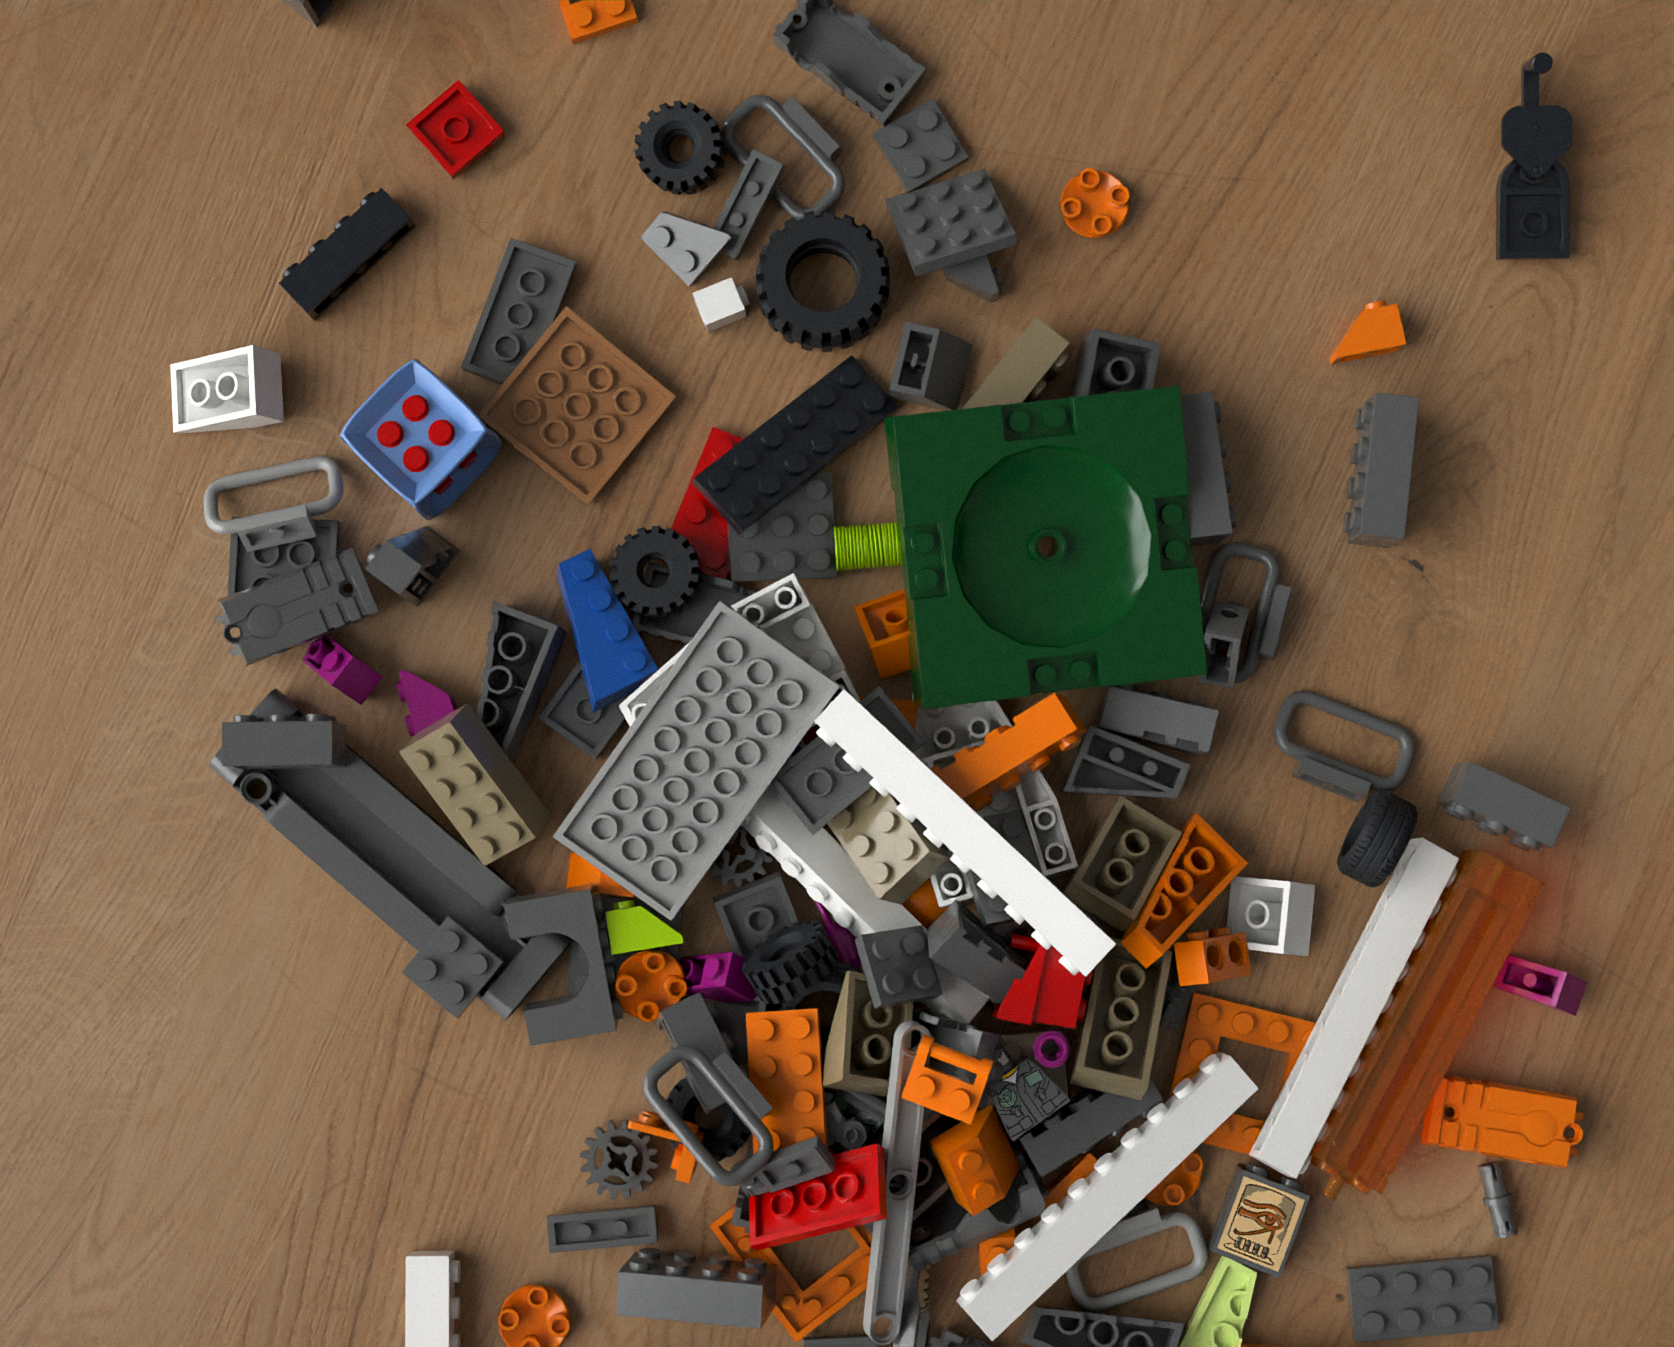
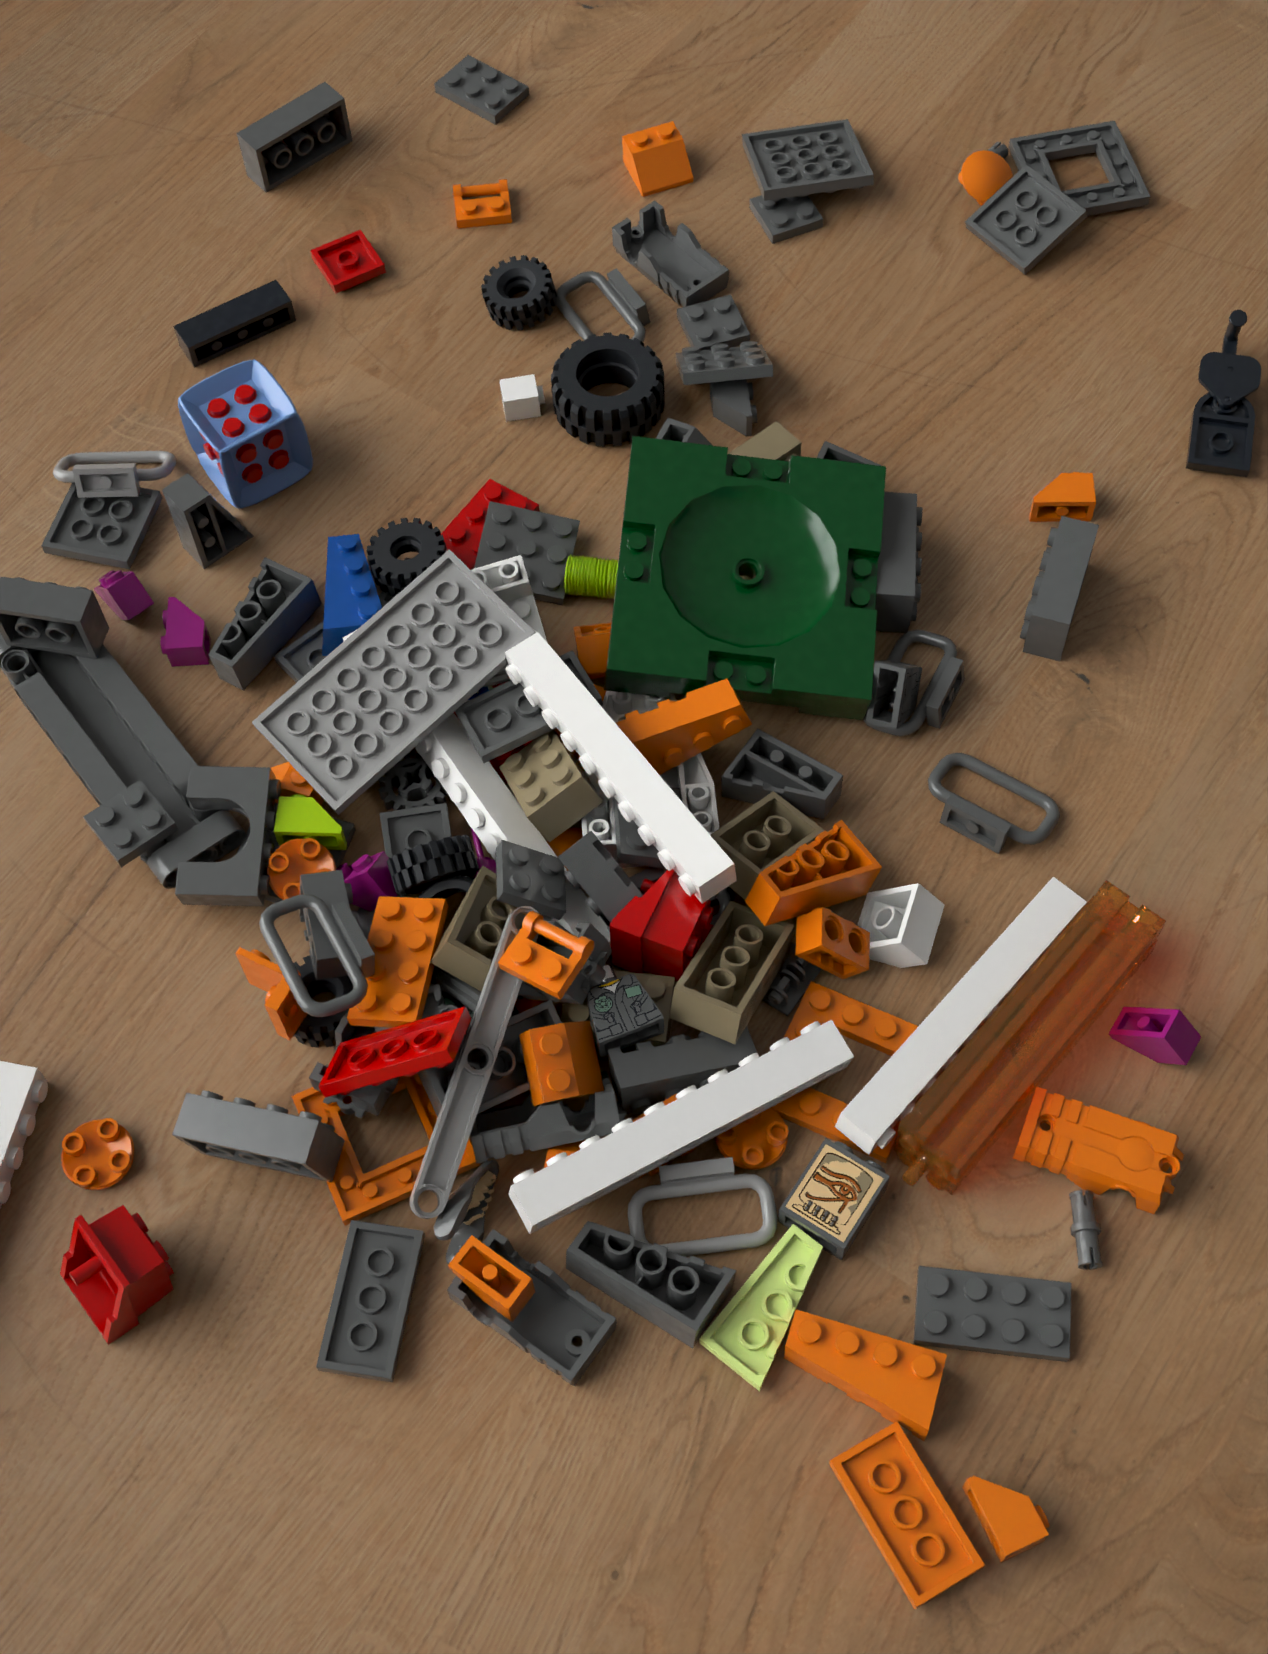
camera: 15 degrees right, 25 degrees down
(227, 391) = (108, 394): white slope -> none
(297, 607) = (101, 537): dark grey piece -> none
(476, 784) = (200, 681): dark tan brick -> none
(518, 309) = (356, 383): dark grey plate -> none
(576, 406) = (382, 444): medium nougat plate -> none
(602, 1228) = (174, 1079): dark grey plate -> none
(628, 1173) = (209, 1027): dark grey gear -> none
(685, 244) = (506, 354): wing -> none
(749, 200) = (560, 334): dark grey plate -> none
(789, 1167) = (375, 1019): dark grey hinge -> none
(794, 445) = (547, 492): black plate -> none
(1060, 1053) = (656, 970): magenta cone -> none
(1094, 203) = (847, 379): orange dish -> none
(1158, 719) = (833, 742): dark grey wedge -> none
(1377, 838) = (1009, 866): black tyre -> none
(1502, 807) = (1135, 862): dark grey brick -> none

